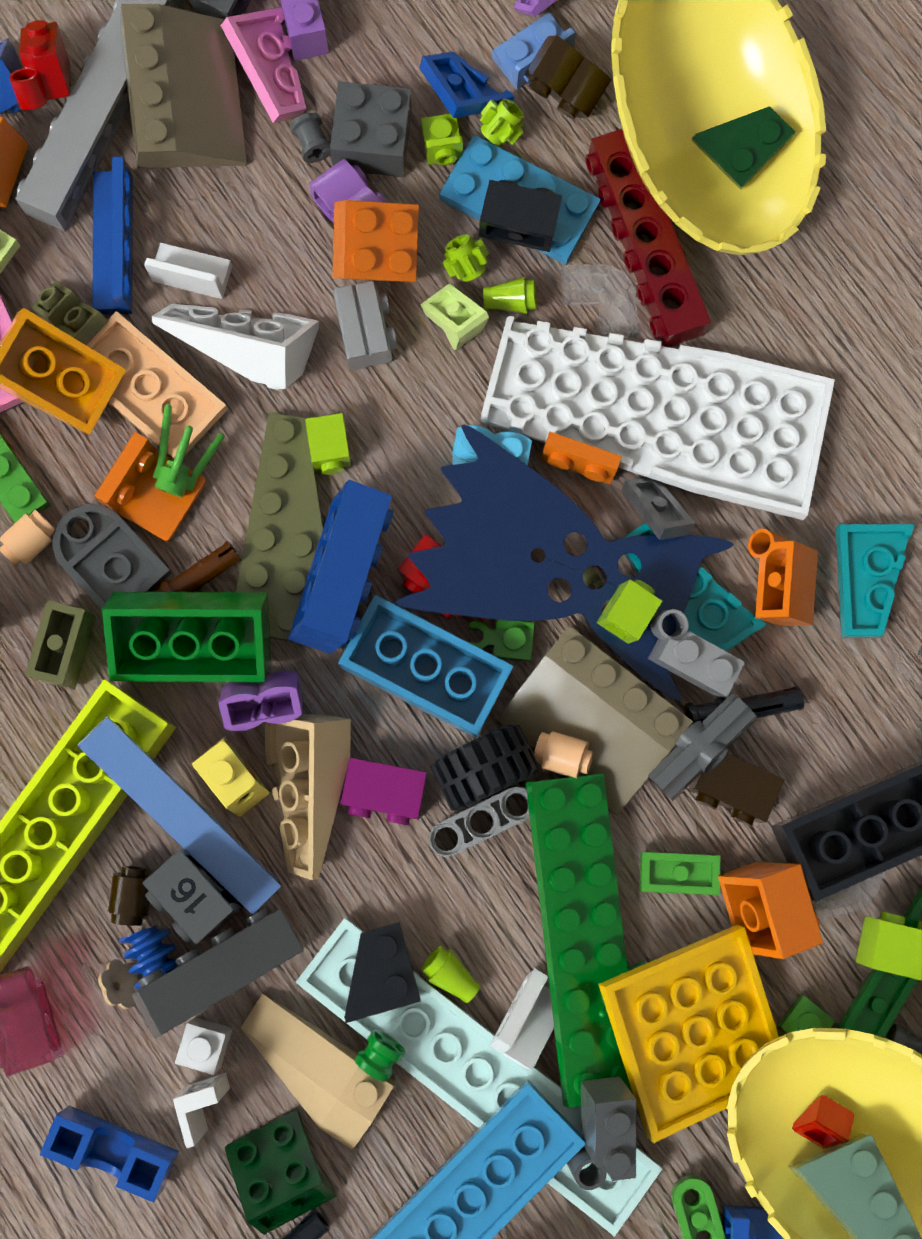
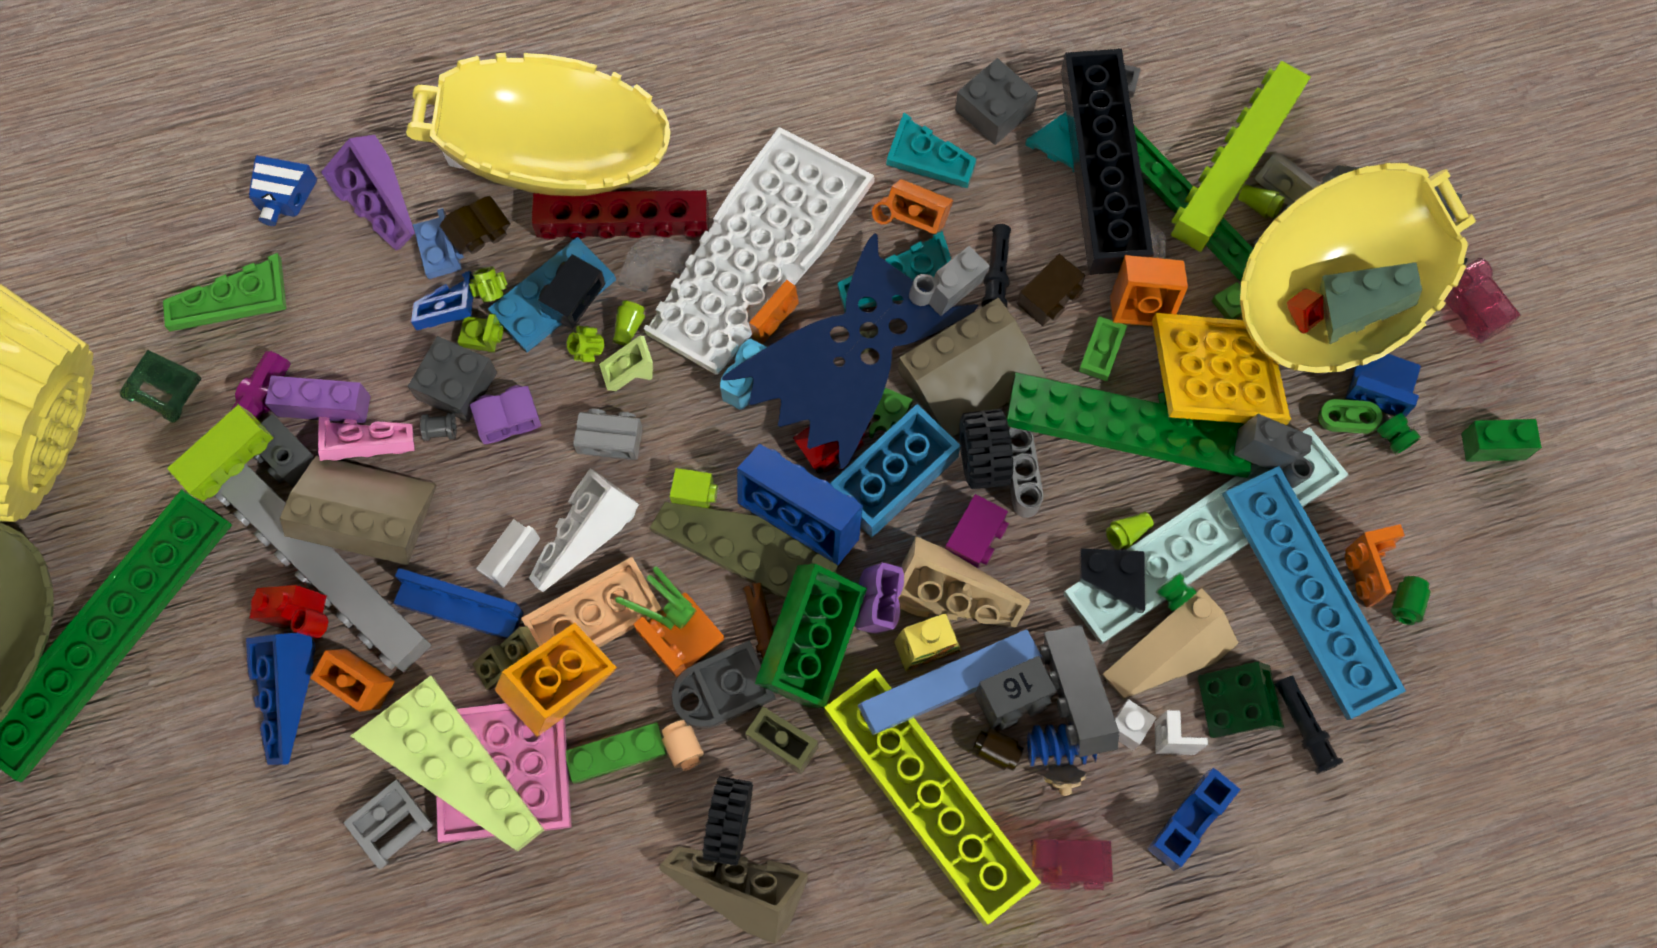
camera: 65 degrees left, 10 degrees down
(375, 241) = (550, 400): orange brick -> none
(526, 1022) = (1178, 484): white panel -> none
(563, 754) = (993, 392): light nougat brick -> none
(630, 610) = (904, 311): lime brick -> none
(658, 508) = (831, 272): flat silver plate -> none
(702, 746) = (1019, 296): dark grey piece -> none
(744, 144) = (580, 123): dark green wing -> none

